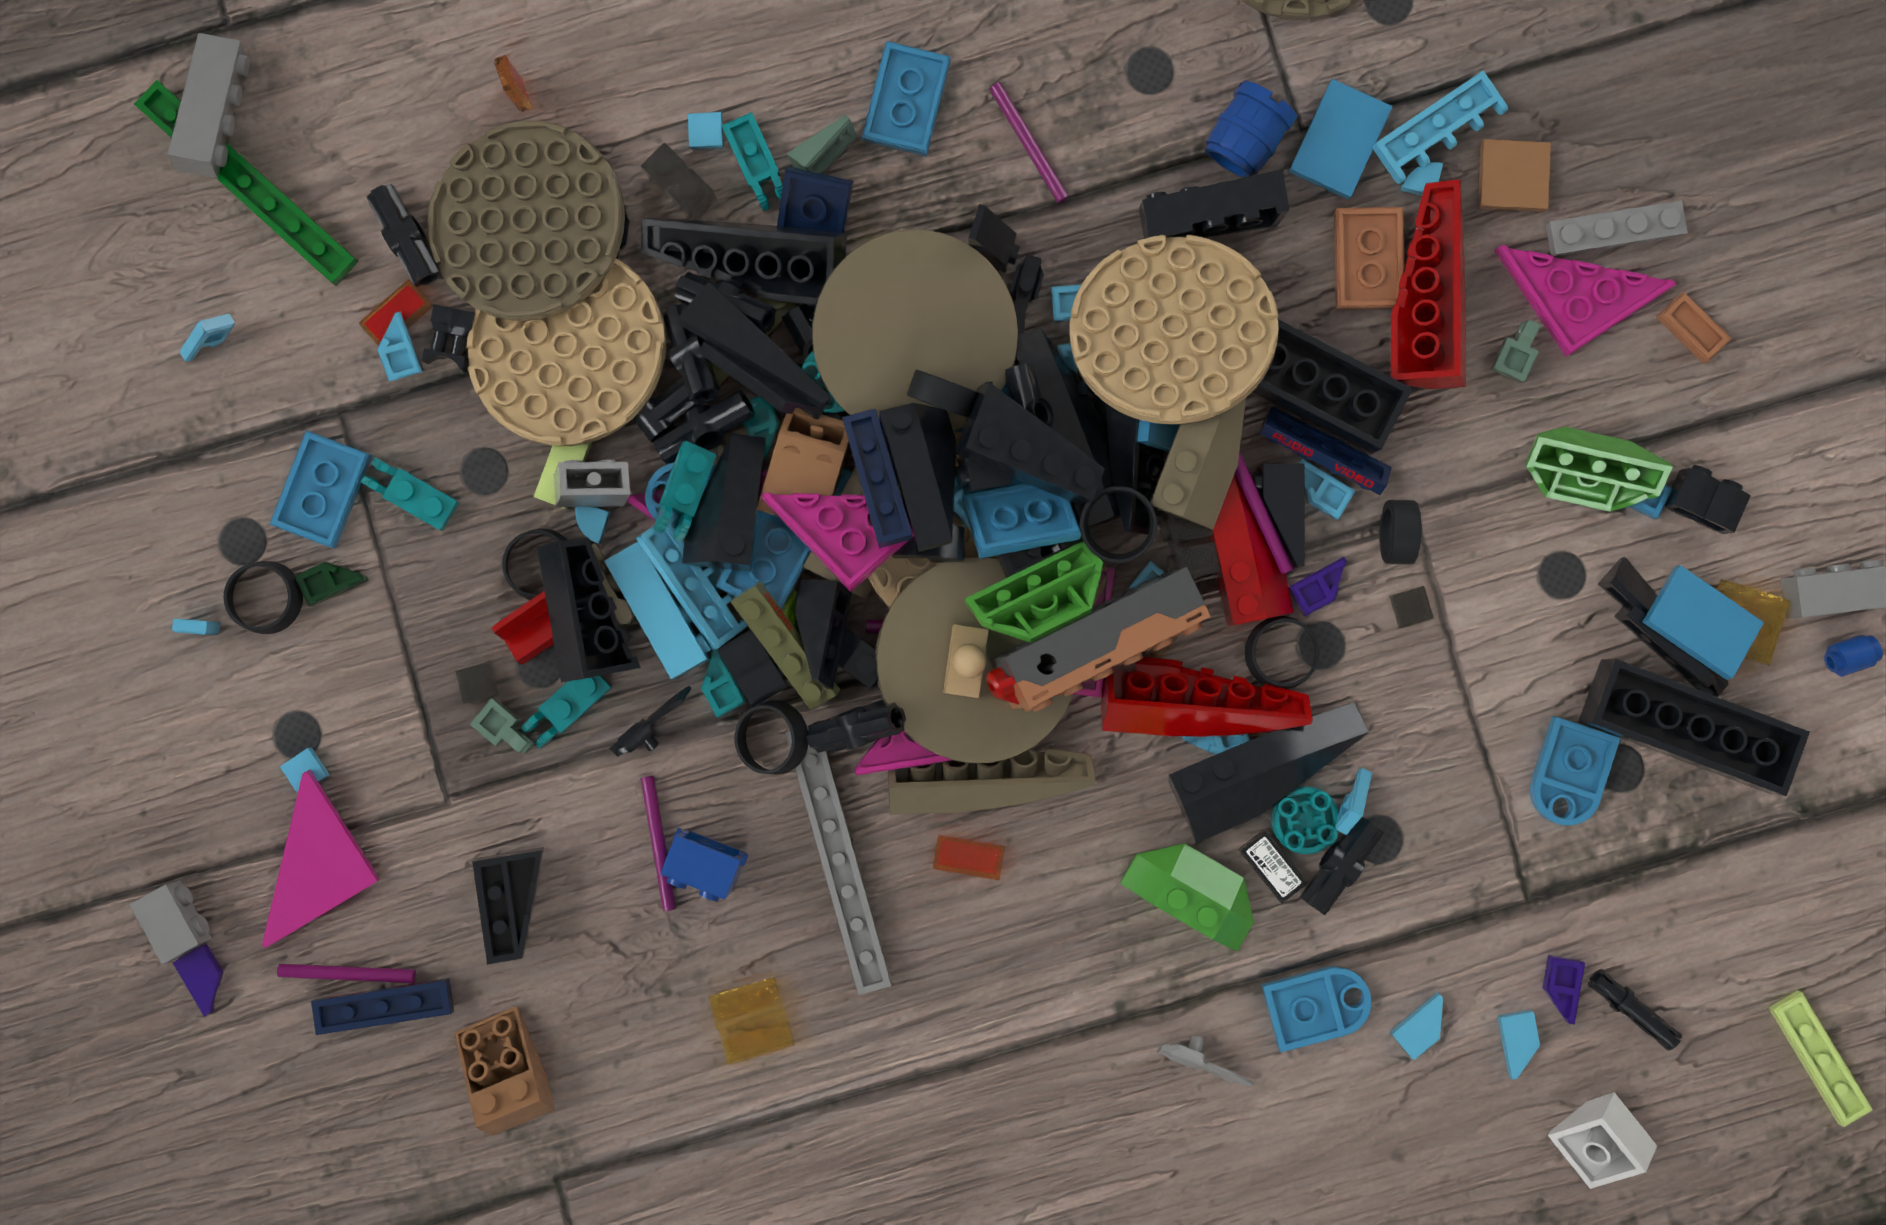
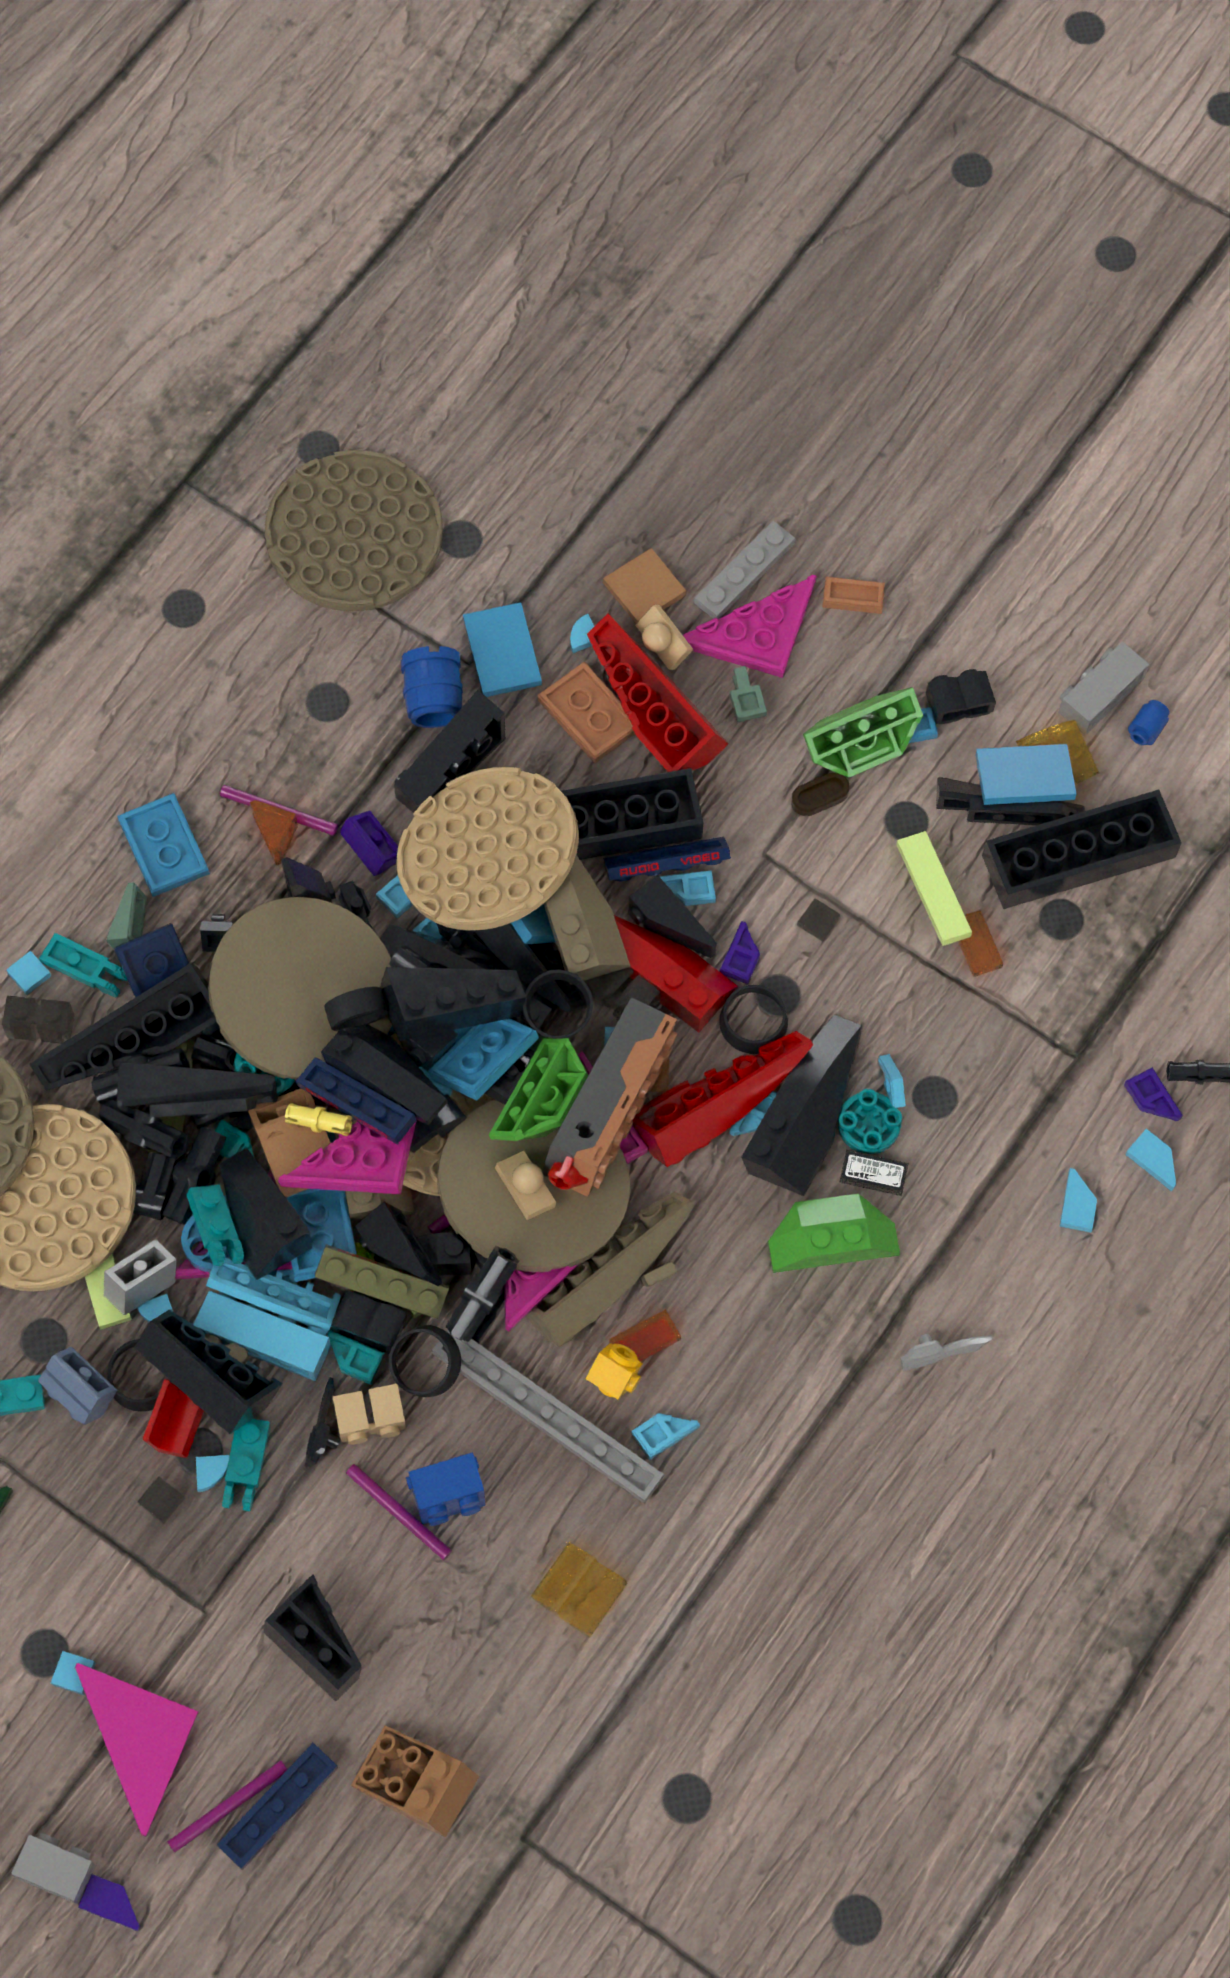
camera: 40 degrees left, 20 degrees down
(475, 537) = (77, 1386): none -> sand blue brick
(499, 724) = (202, 1515): sand green plate -> none
(533, 690) = (210, 1471): none -> medium azure tile
(678, 739) = (353, 1418): none -> tan piece
(834, 468) = (318, 1119): none -> light yellow pin
(887, 218) = (213, 932): none -> black tile
(920, 870) = (615, 1371): none -> yellow brick
(920, 946) = (662, 1432): none -> medium azure tile
(1012, 159) = (276, 828): none -> clear orange slope
(1022, 815) = (658, 1274): none -> dark tan tile
(1085, 234) = (370, 842): none -> dark purple slope
(1262, 517) = (660, 934): magenta bar -> none
(1313, 1008) = (989, 1250): dark azure tile -> none
(1341, 865) = (921, 1131): black piece -> none
(1400, 532) = (765, 871): black tyre -> none
(1438, 124) = (563, 590): medium azure hinge -> none
(1491, 239) = (663, 637): none -> tan tile
(1507, 492) = (820, 794): none -> dark brown tile
(1529, 734) = (980, 947): none -> clear orange tile
(1534, 658) = (934, 888): none -> yellowish green tile
(1572, 767) = (1028, 944): dark azure tile -> none

